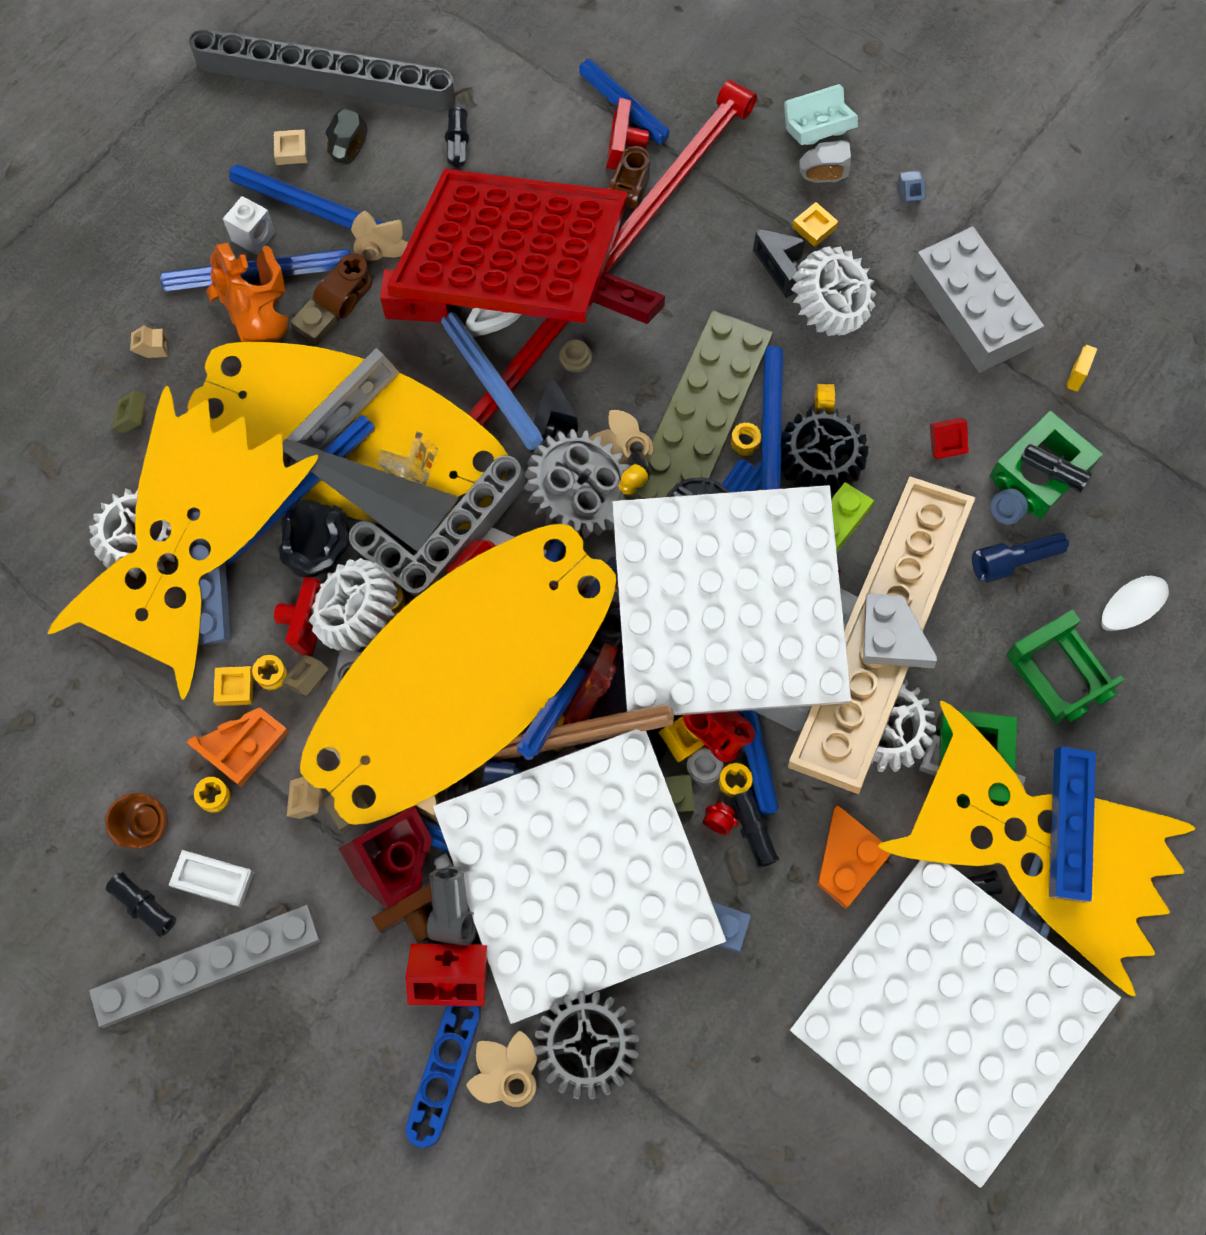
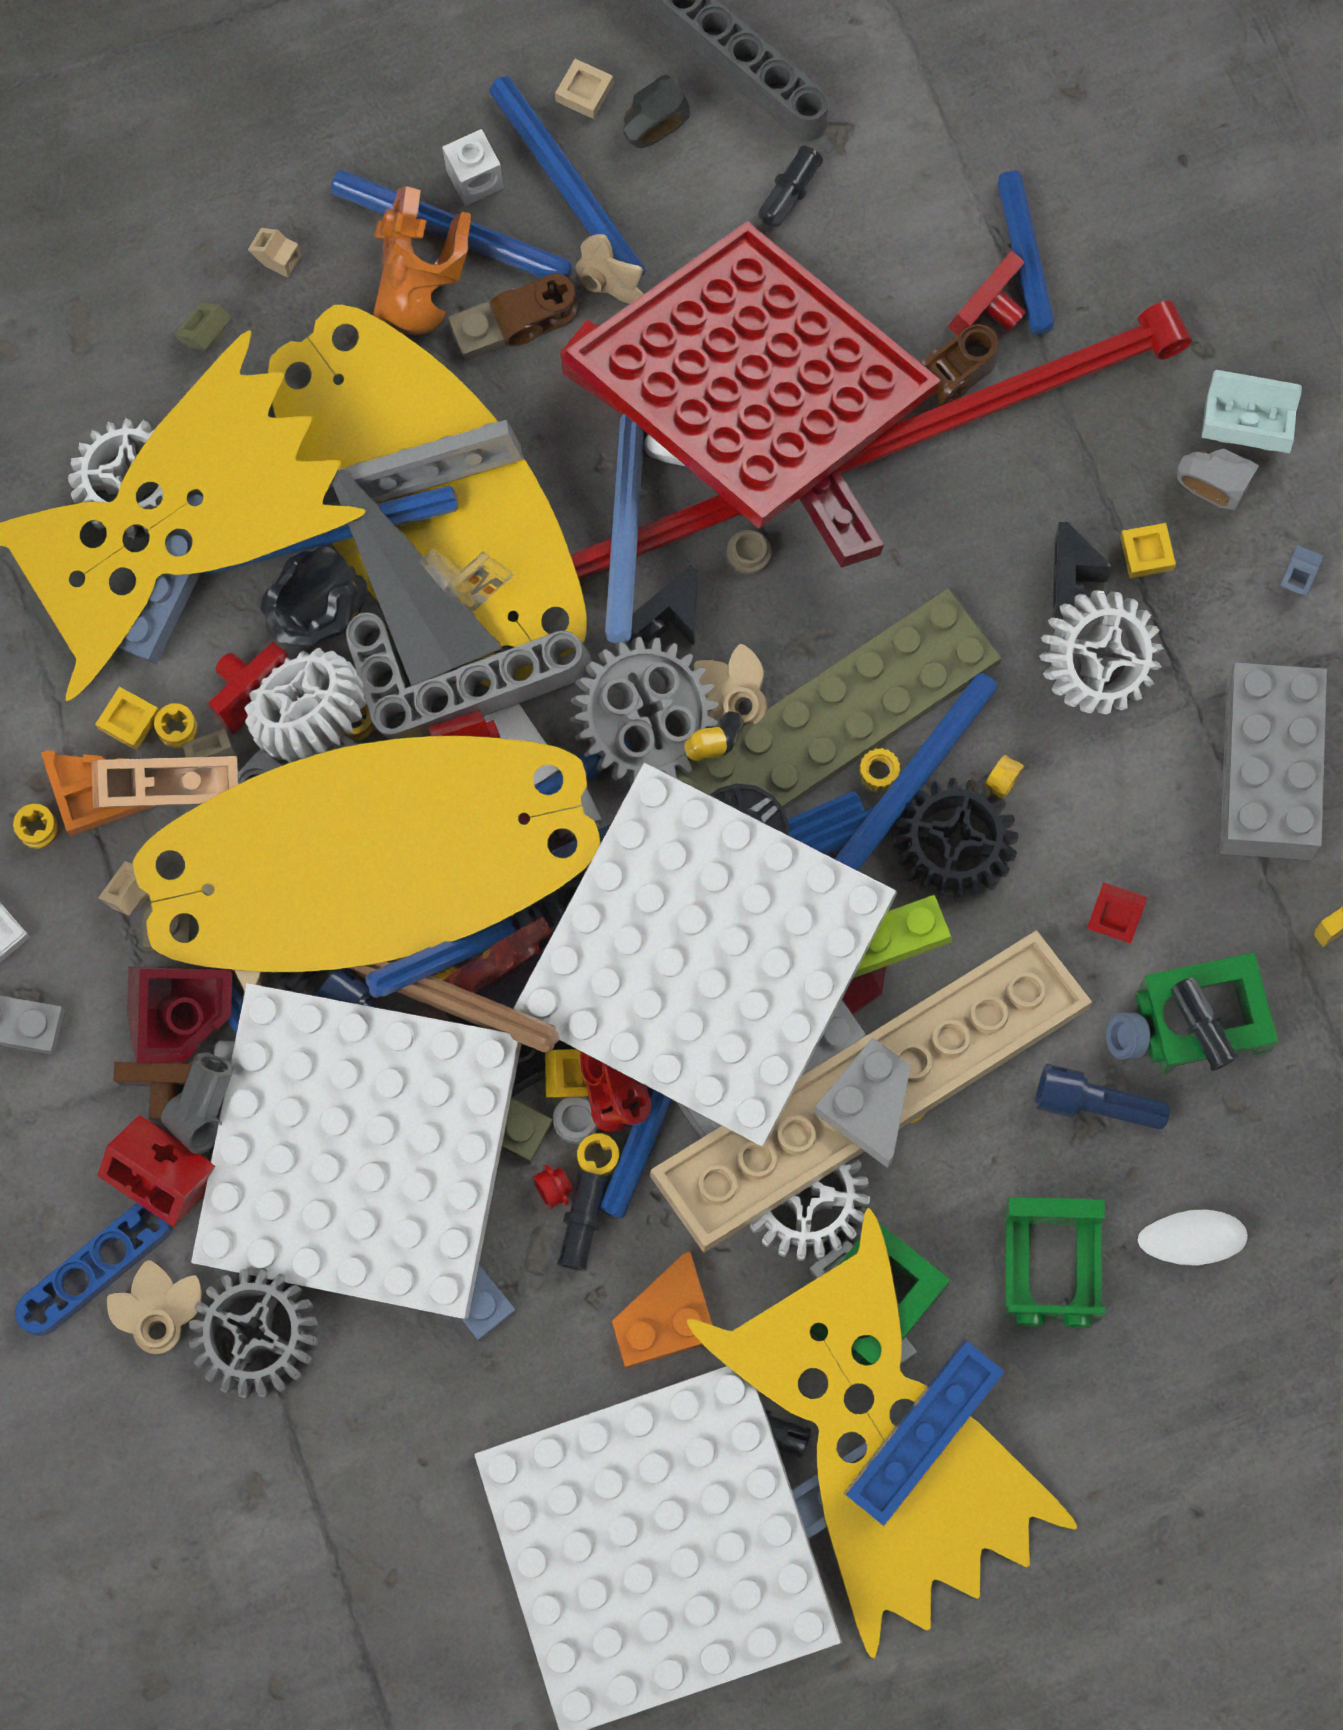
camera: 35 degrees right, 5 degrees up
(284, 709) = (161, 781): none -> light nougat slope

